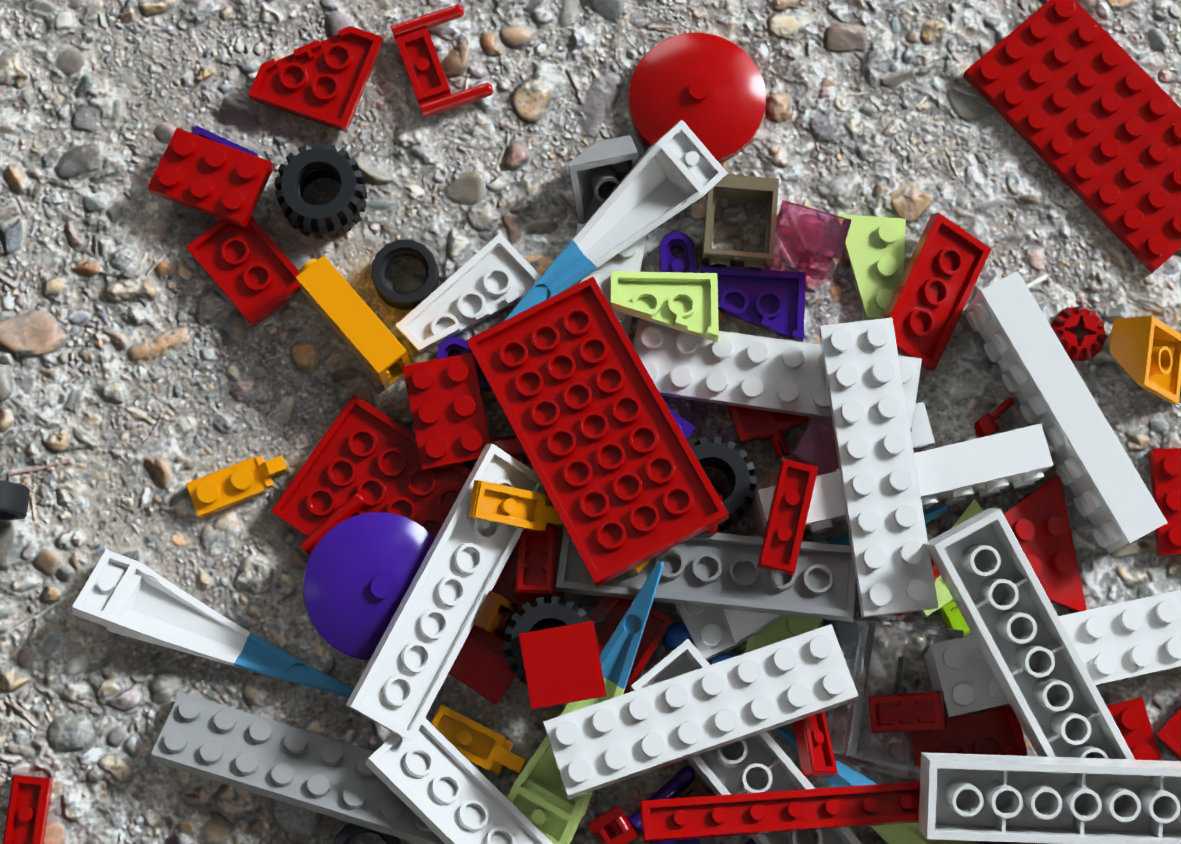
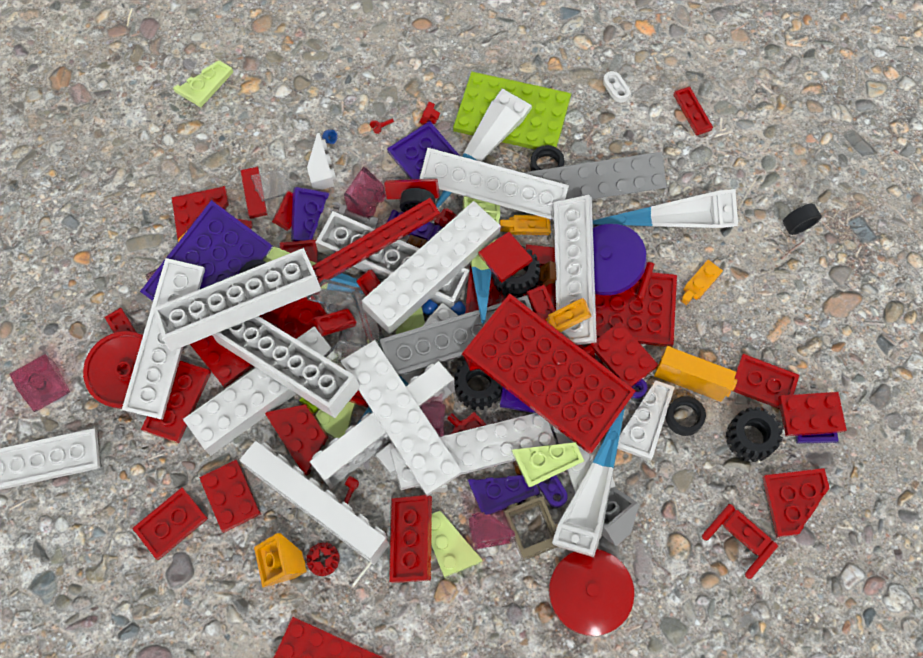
camera: 160 degrees right, 10 degrees down
(787, 517) = (433, 370): red tile -> none

